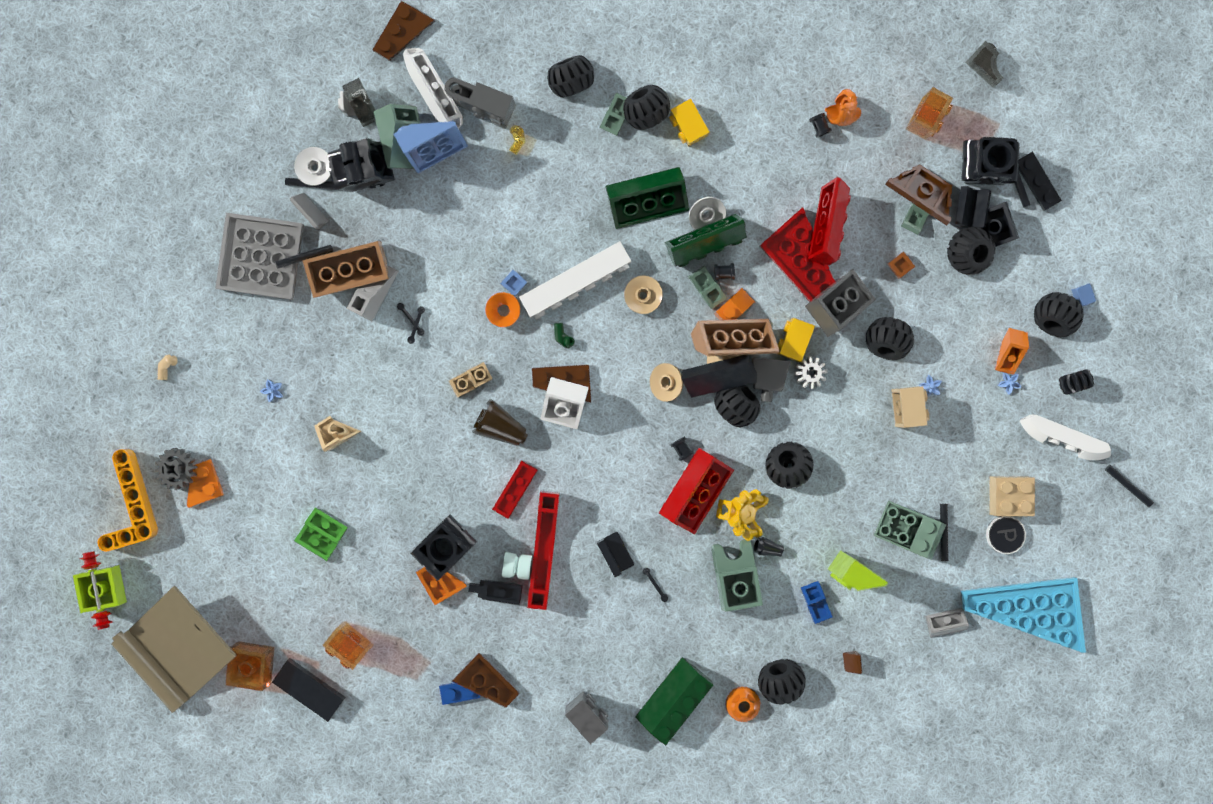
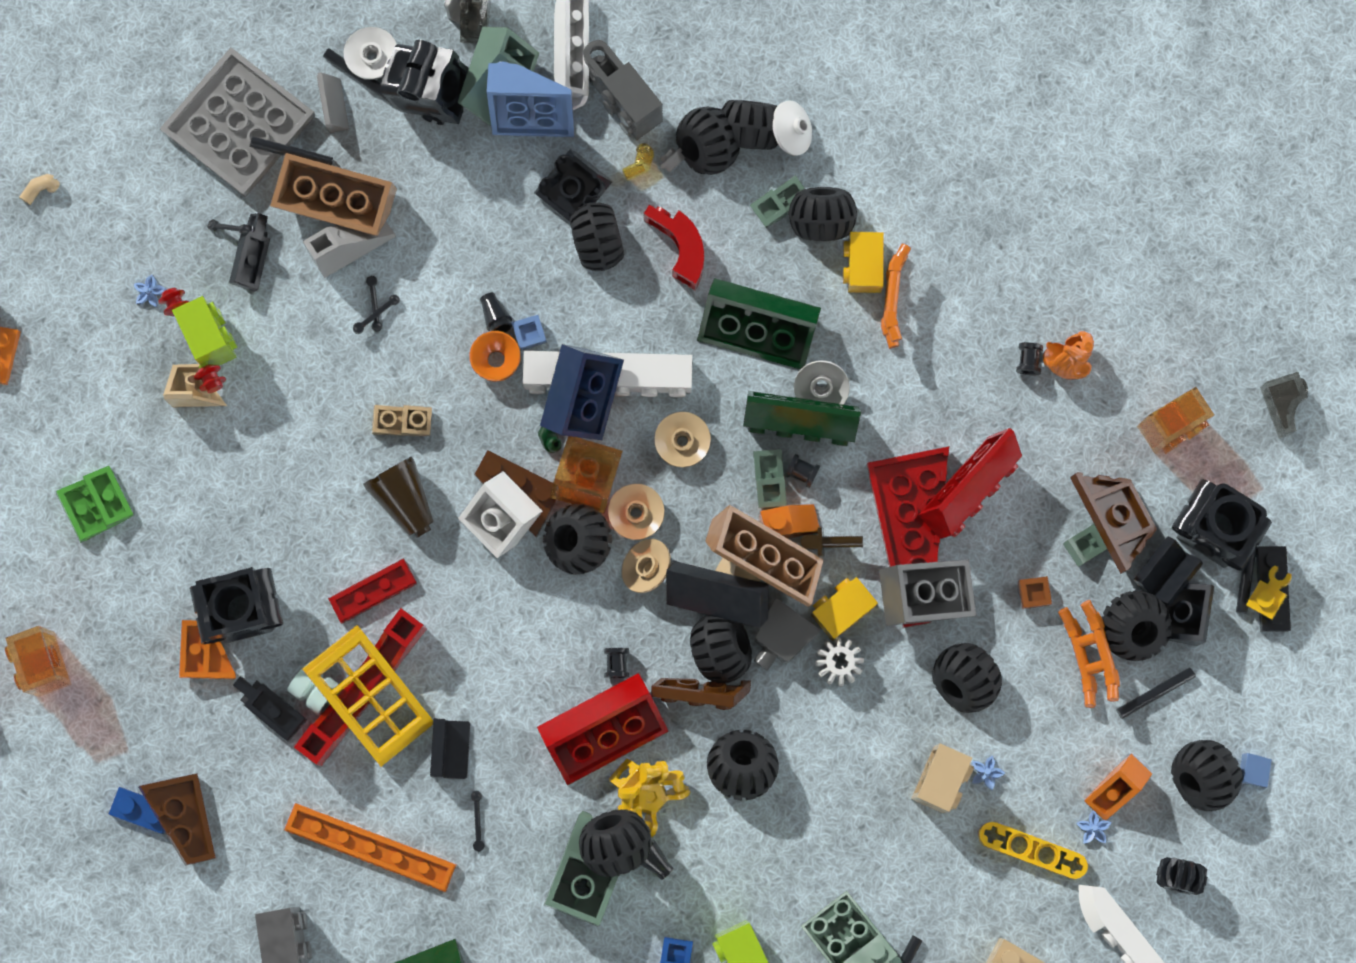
camera: 30 degrees right, 10 degrees down
(284, 328) = (213, 225): none -> black hinge
(318, 332) = (251, 254): none -> black hinge
(322, 398) = (204, 334): none -> lime brick
(486, 178) = (572, 184): none -> black slope
(487, 284) = (495, 314): none -> black cone
(518, 542) = (335, 654): none -> yellow piece
(519, 200) = (596, 236): none -> black wheel
(536, 126) = (672, 159): none -> light grey plate
(550, 102) = (707, 140): none -> black wheel
(569, 303) = (581, 393): none -> dark blue slope
(576, 172) = (687, 239): none -> red arch
(597, 64) = (792, 128): none -> white dish
(600, 349) = (586, 473): none -> clear orange brick
(603, 635) = (370, 847): none -> orange tile
(607, 387) = (577, 539): none -> black wheel
(643, 343) = (633, 497): none -> tan dish
(724, 150) = (889, 321): none -> orange piece
(744, 554) = (615, 843): none -> black wheel
(747, 435) = (696, 694): none -> reddish brown wing
(758, 309) = (820, 541): none -> dark brown arm
(955, 293) = (1087, 669): none -> orange piece
(981, 415) = (1031, 853): none -> yellow beam
(1002, 283) = (1155, 693): none -> black bar
(1039, 189) = (1268, 597): none -> yellow plate

